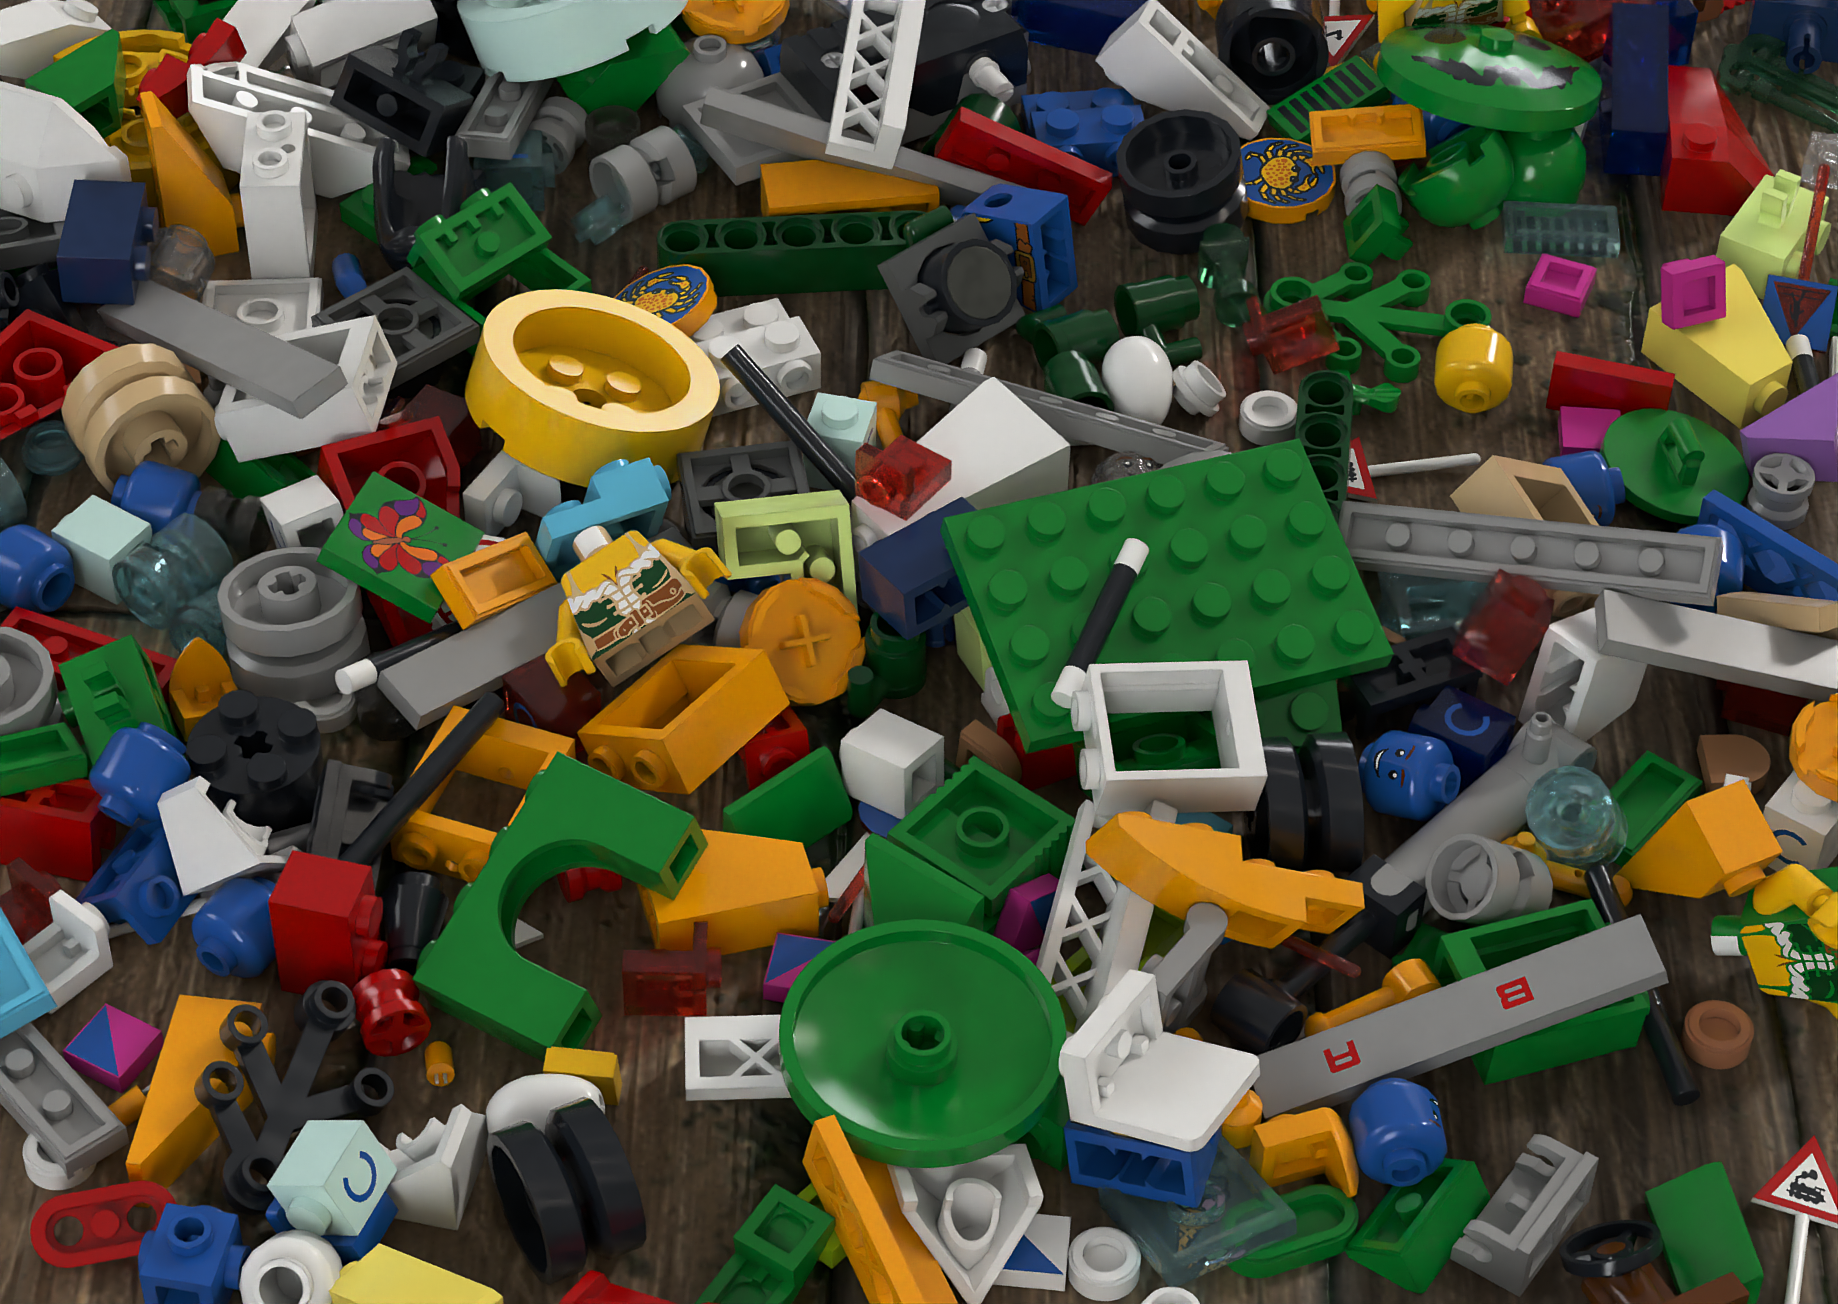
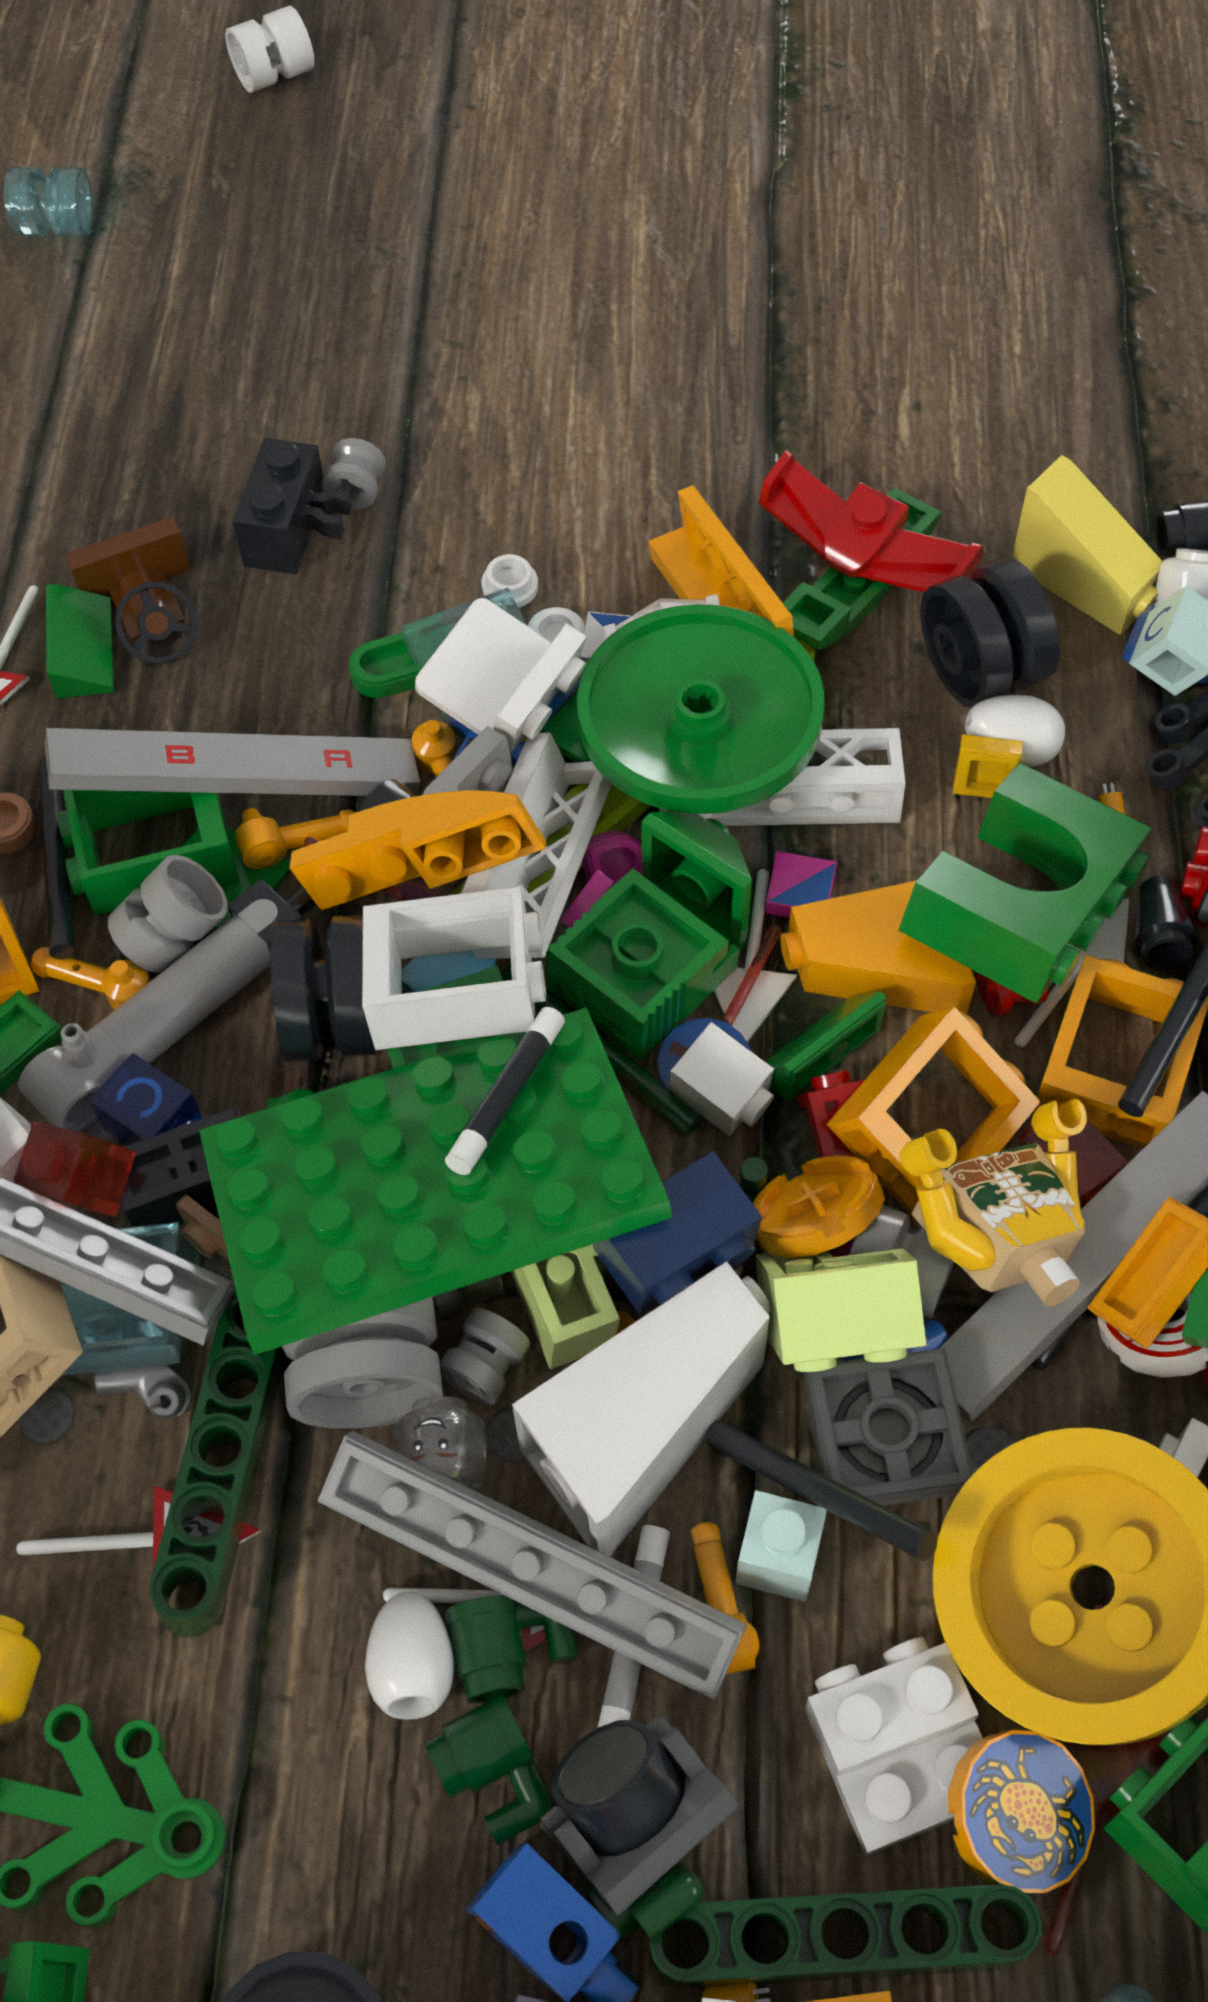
camera: 175 degrees left, 15 degrees up
(390, 1013) = (1172, 833): red wheel -> none
(438, 1169) = (1106, 701): white slope -> none
(618, 498) = (1051, 1365): medium azure plate -> none
(671, 980) = (913, 851): clear red bracket -> none
(900, 476) = (715, 1323): clear red bracket -> none
(990, 748) = (638, 1094): medium nougat tile -> none
(1160, 307) = (367, 1815): dark green piece -> none
(1197, 389) = (334, 1657): white plate -> none
(1224, 269) = (262, 1923): clear green leg -> none
(1268, 417) = (254, 1627): white tile -> none
(1290, 333) = (196, 1737): clear red bracket -> none
(1303, 1147) = (382, 703): light orange plate -> none
(1382, 397) = (114, 1648): green piece -> none
(1397, 1132) = (304, 700): blue head -> none
(1408, 775) = (212, 1054): blue head -> none
(1418, 1224) = (301, 668): green slope -> none
(1527, 1215) = (214, 654): light grey hinge -> none
(1576, 818) = (63, 980): clear light blue wheel -> none

